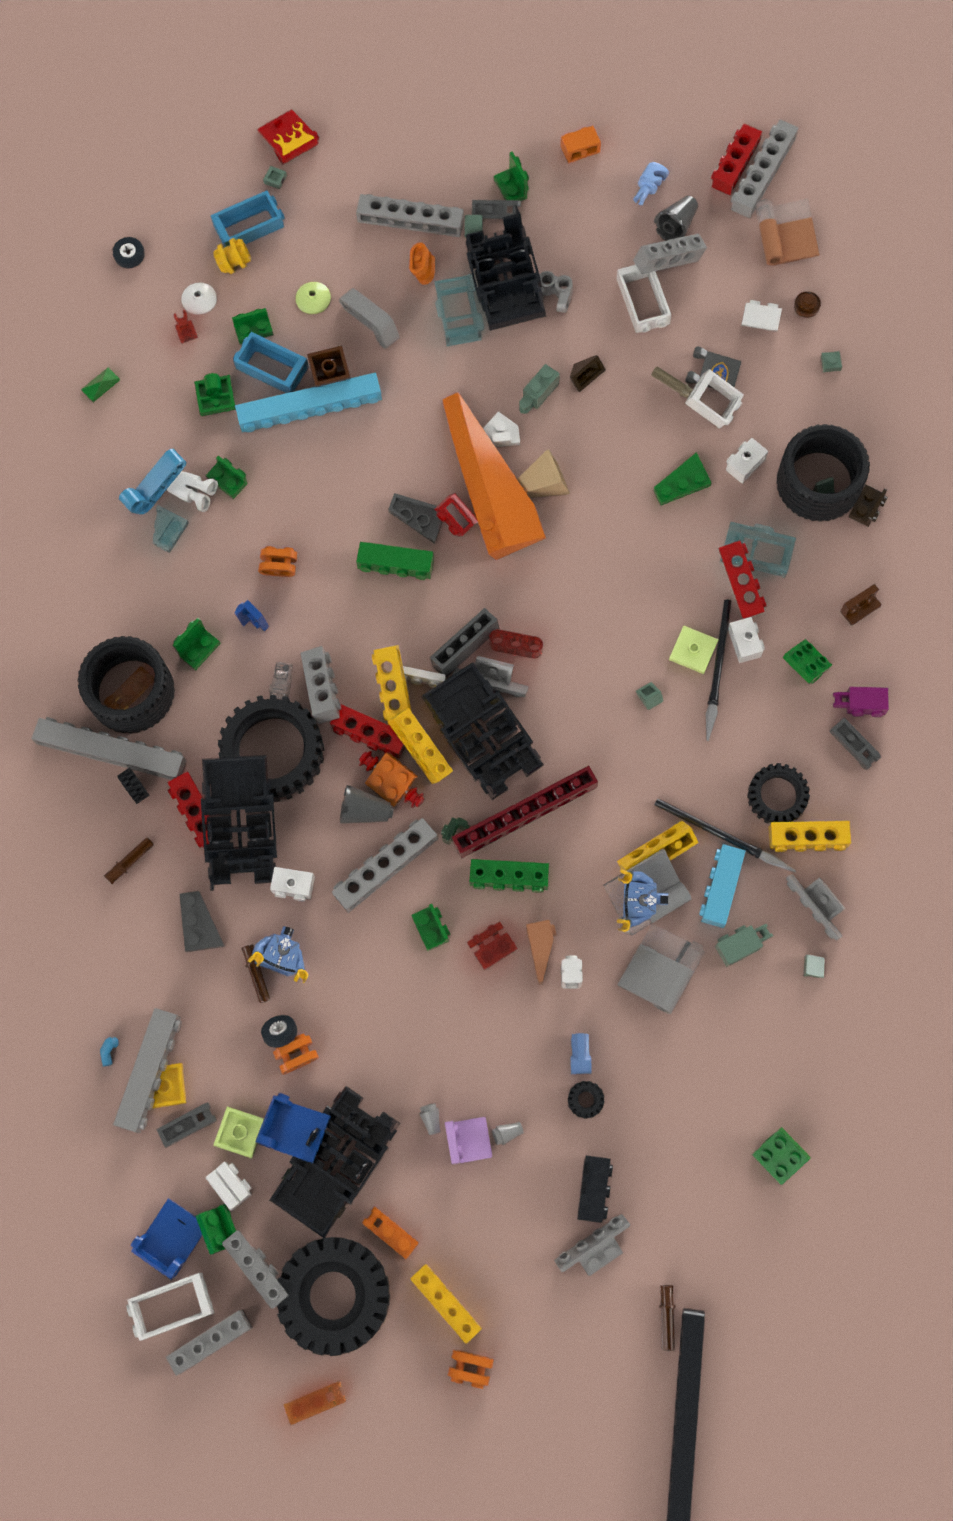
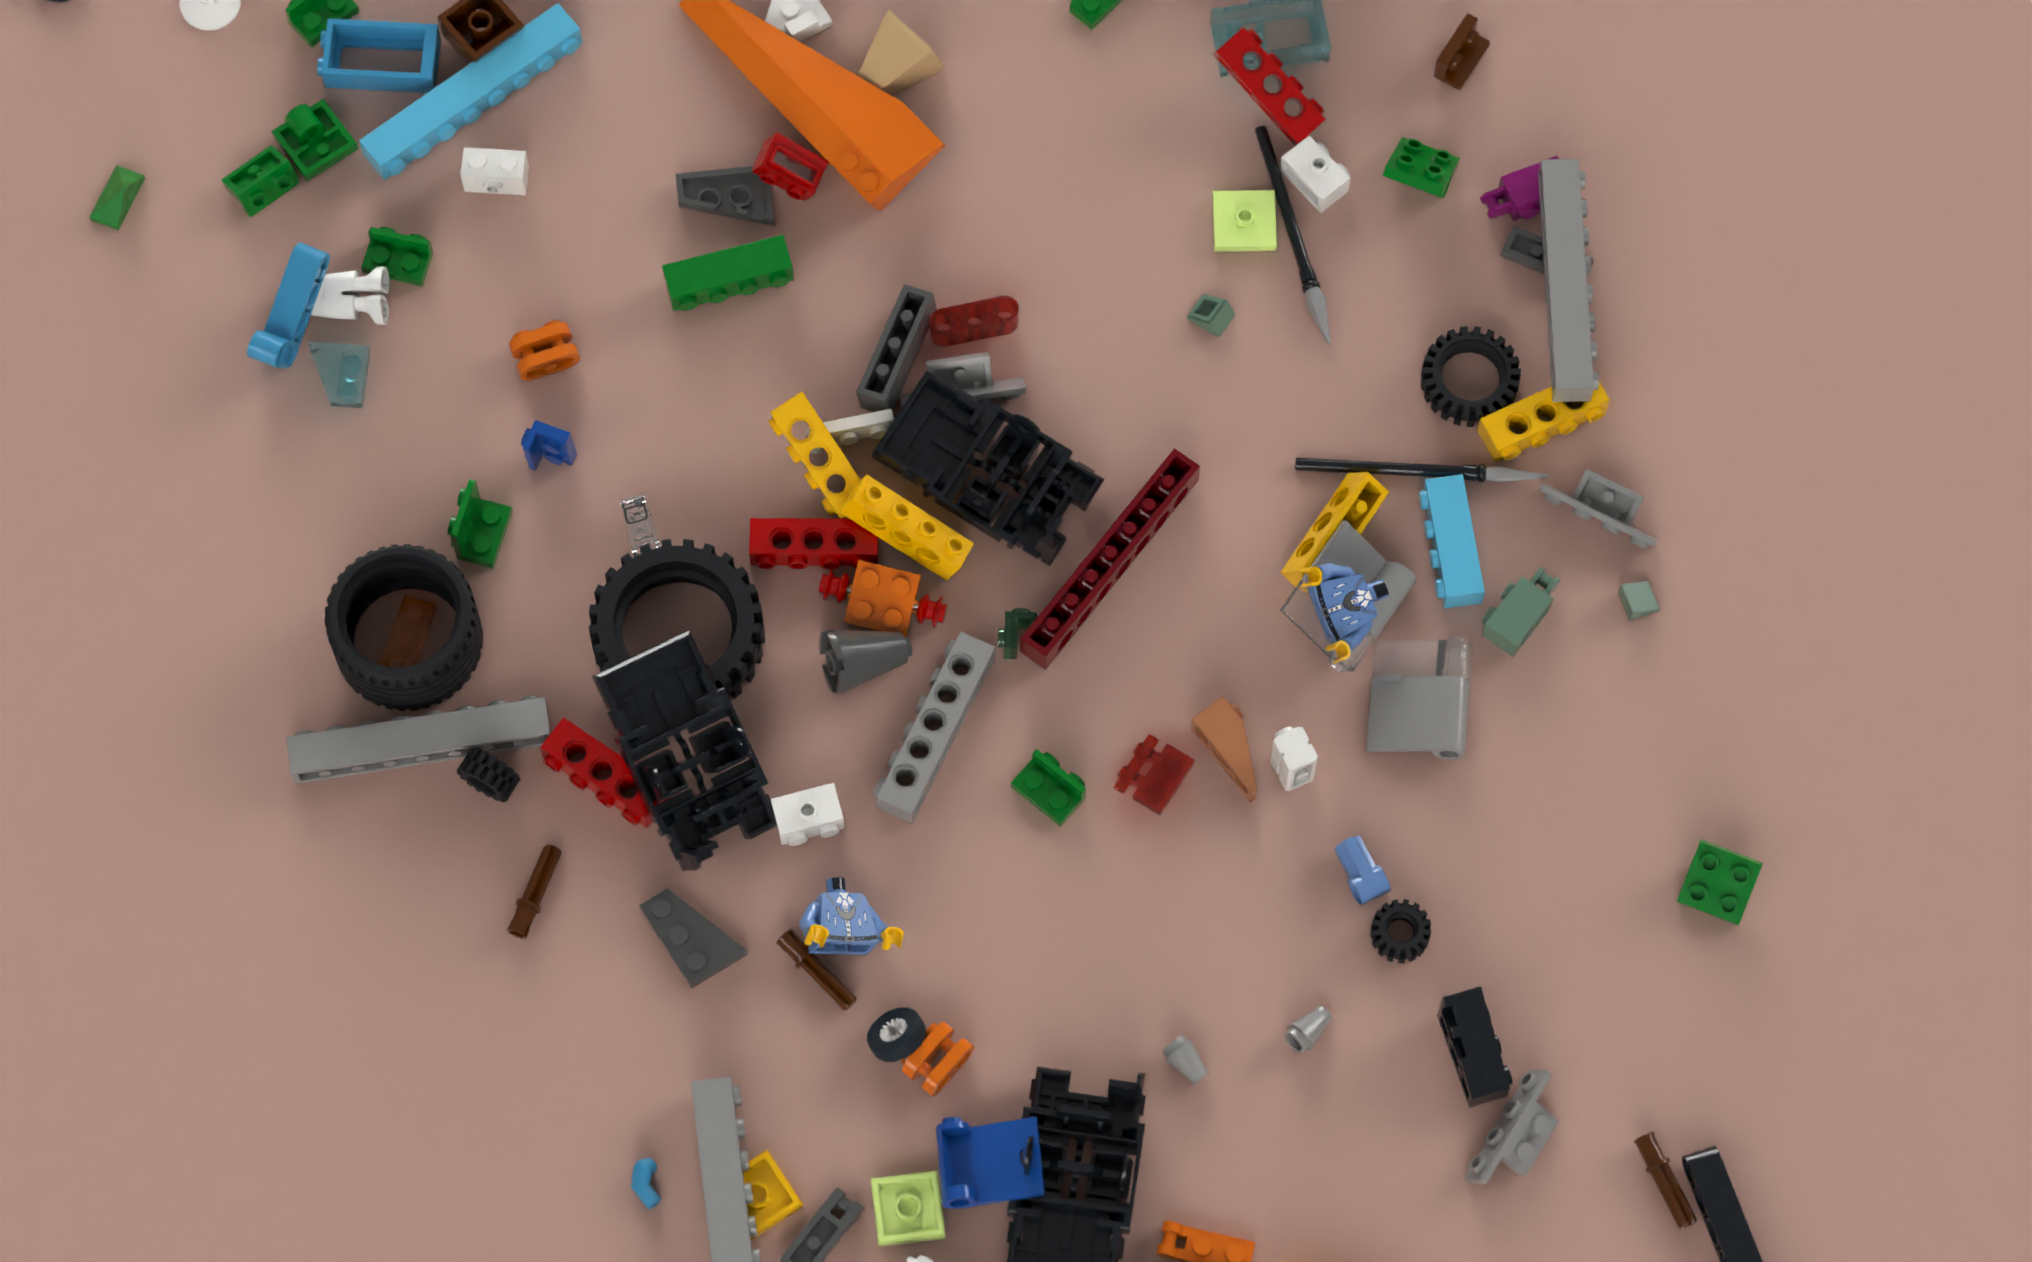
camera: 30 degrees left, 5 degrees down
(176, 406) = (261, 180): none -> green bracket
(185, 328) = (214, 57): clear red plate -> none
(299, 451) = (494, 171): none -> white brick
(321, 710) = (731, 537): light grey brick -> none
(468, 1140) = (1256, 1065): lavender bracket -> none
(509, 875) = (1130, 661): green brick -> none
(857, 764) = (1566, 280): none -> light grey brick

